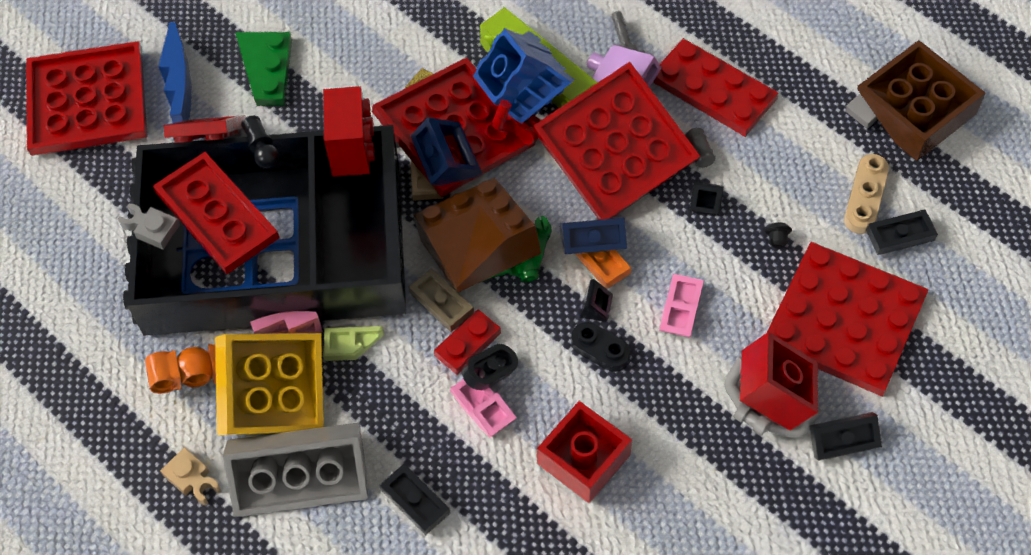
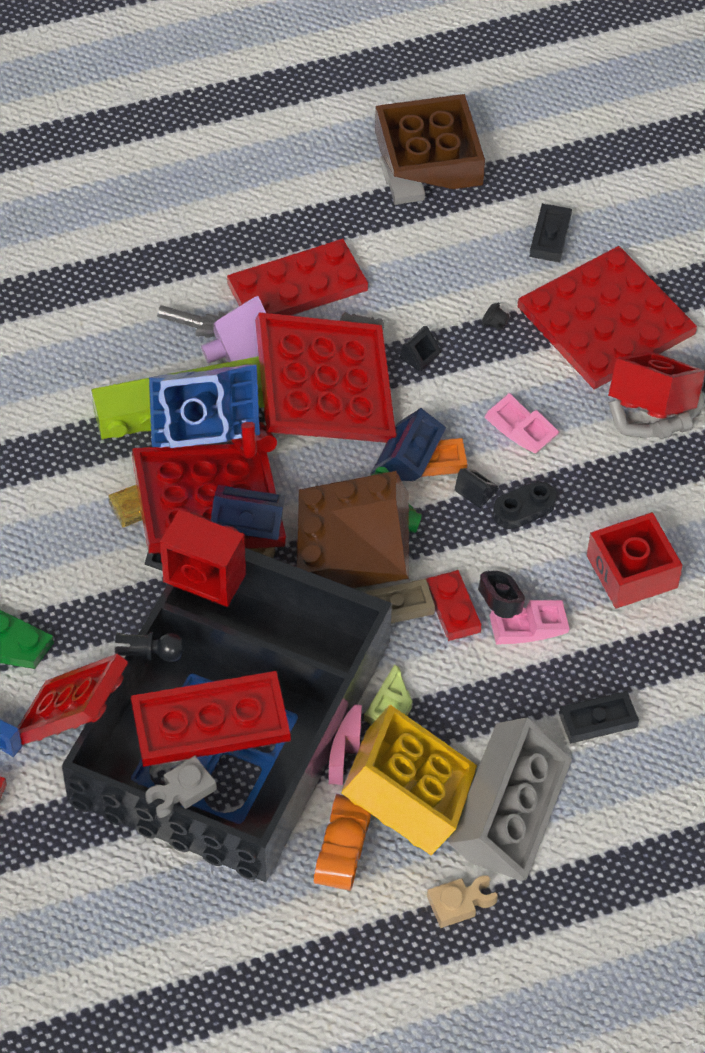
camera: 65 degrees left, 5 degrees down
(863, 201) = (477, 226): tan plate -> none

